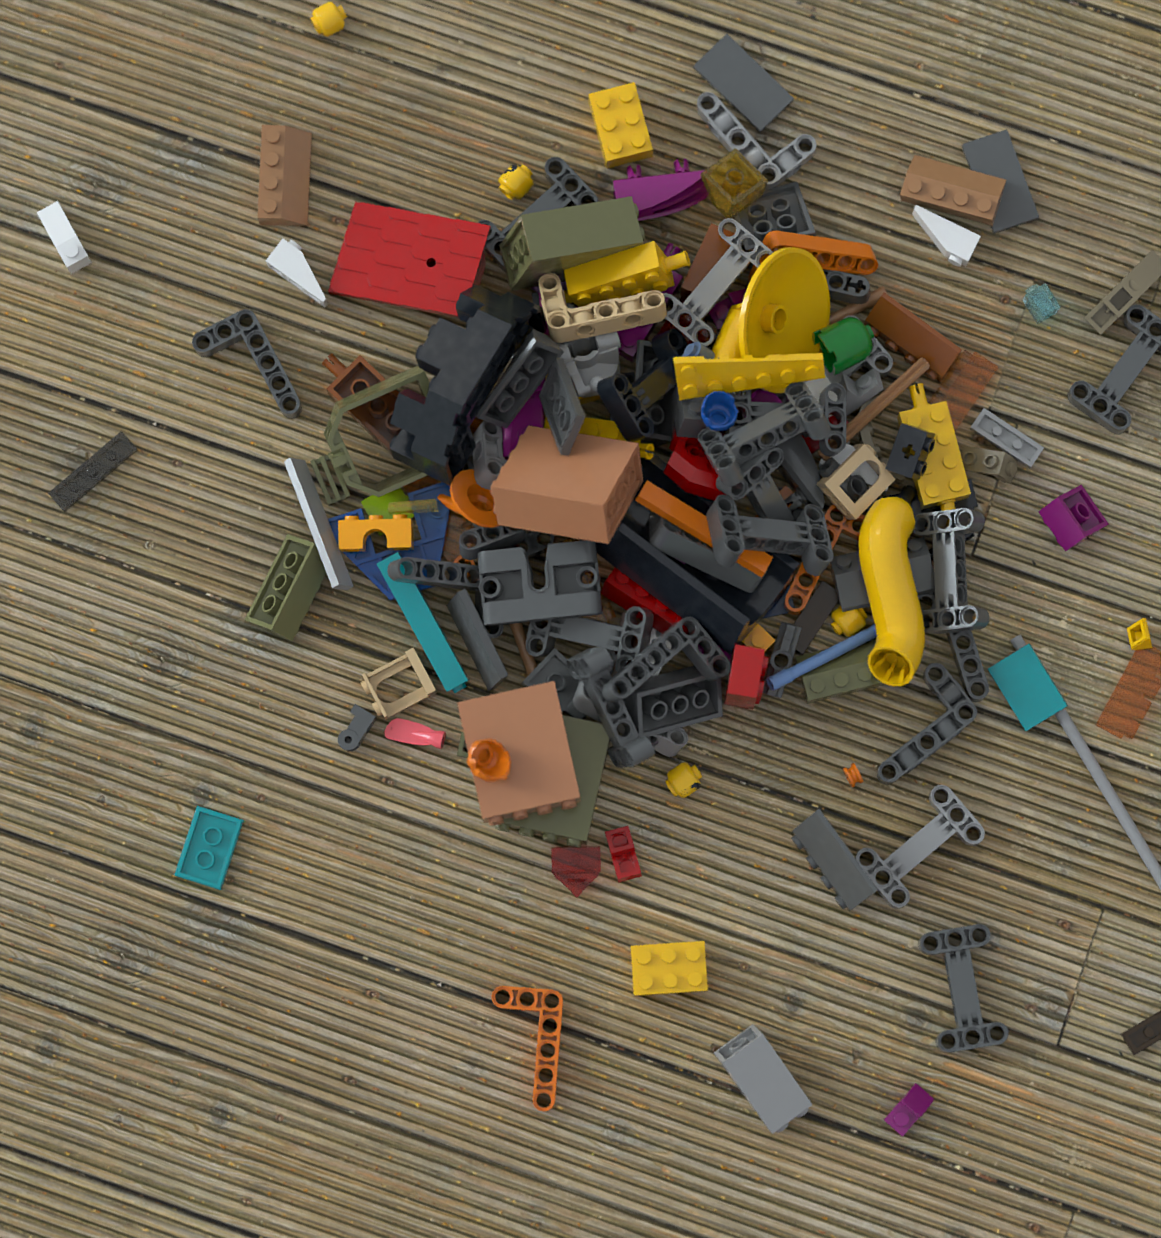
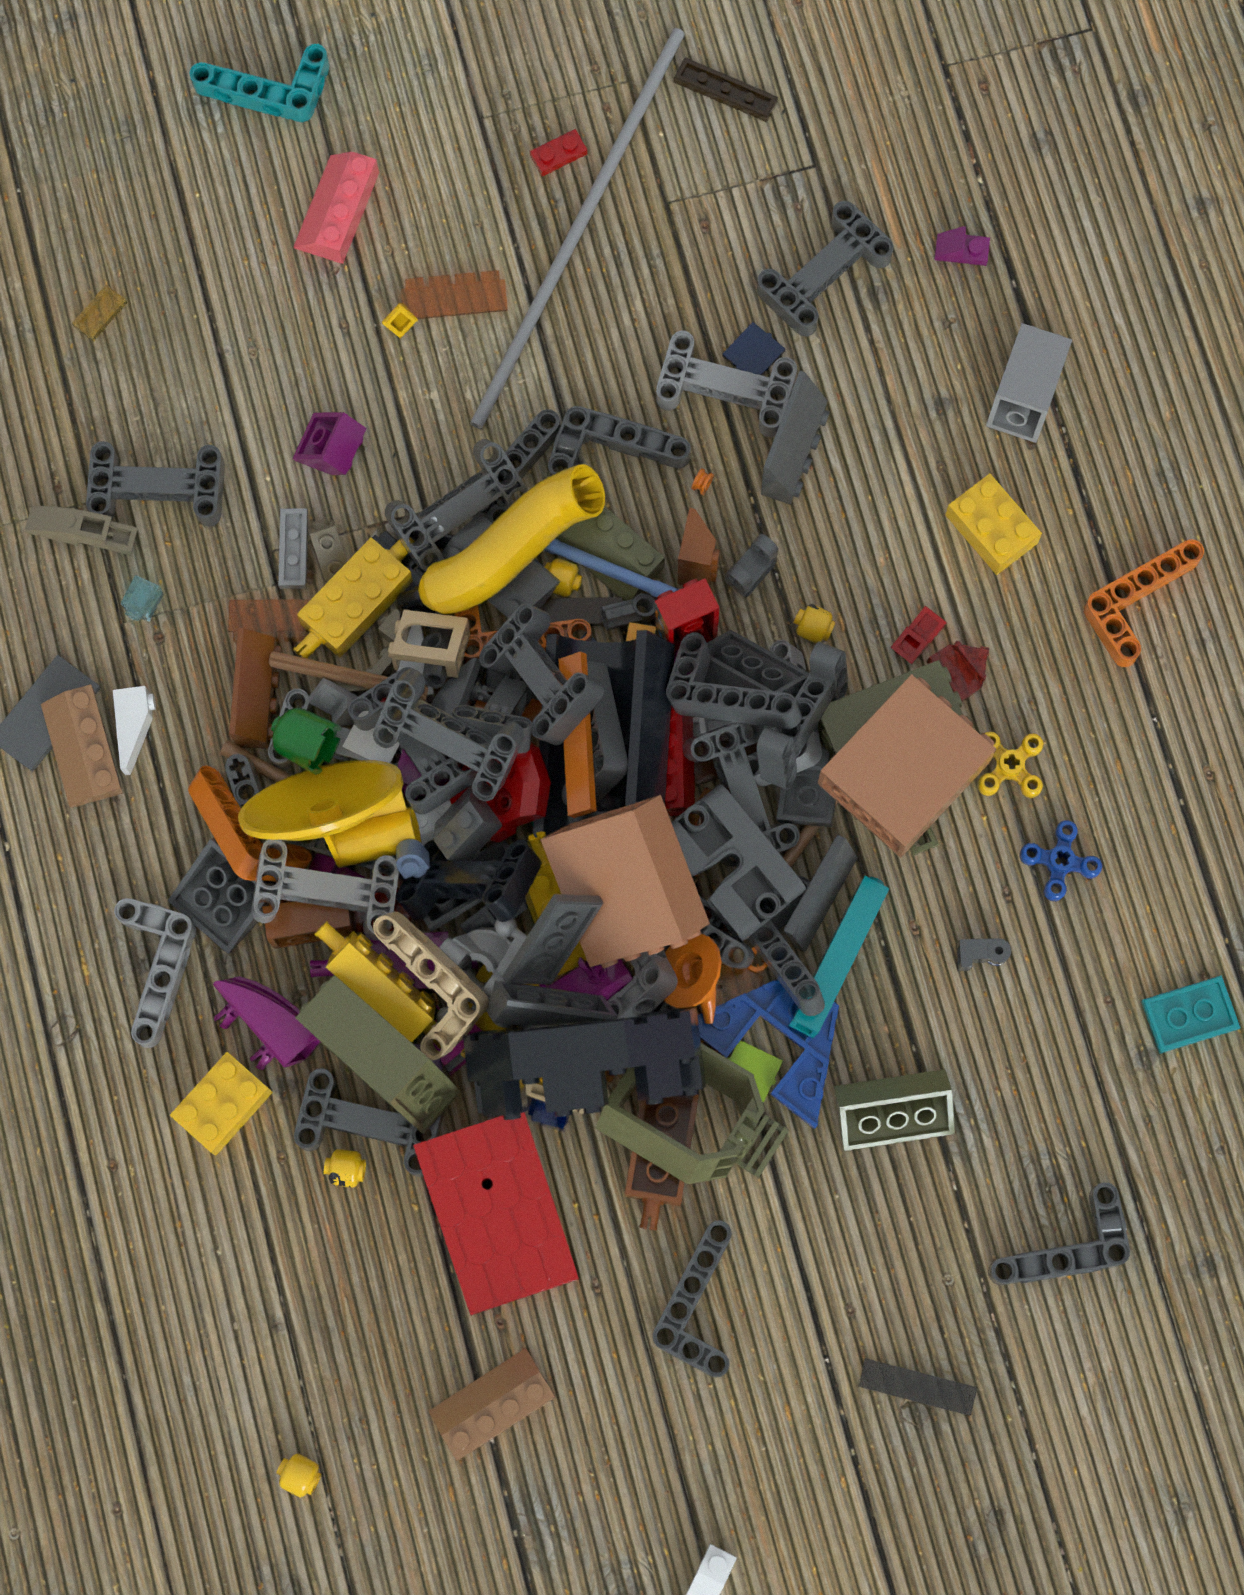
camera: 125 degrees left, 5 degrees down
(97, 642) = (1079, 1257): none -> dark grey beam
(291, 265) = (577, 1328): white slope -> none
(318, 524) = (816, 1120): light grey tile -> none
(354, 532) = (798, 1078): light orange arch -> none
(374, 840) = (1062, 849): none -> blue gear
(375, 677) = (938, 935): tan panel -> none
(411, 507) = (737, 1038): clear yellow tile -> none
(414, 733) = (946, 898): coral piece -> none
(479, 859) = (1019, 772): none -> yellow gear
(489, 760) = (941, 772): orange hair -> none
(702, 376) = (432, 826): yellow wing -> none
(719, 411) = (455, 791): blue hair -> none
(733, 183) = (211, 951): clear yellow slope -> none
(743, 83) = (100, 1016): dark grey tile -> none
(758, 761) = (753, 566): none -> dark grey piece
(793, 724) = (698, 552): none -> dark orange slope
(901, 459) = (385, 609): black brick -> none
(933, 888) = (754, 350): none -> dark blue piece
(1027, 687) = (514, 383): teal tile -> none

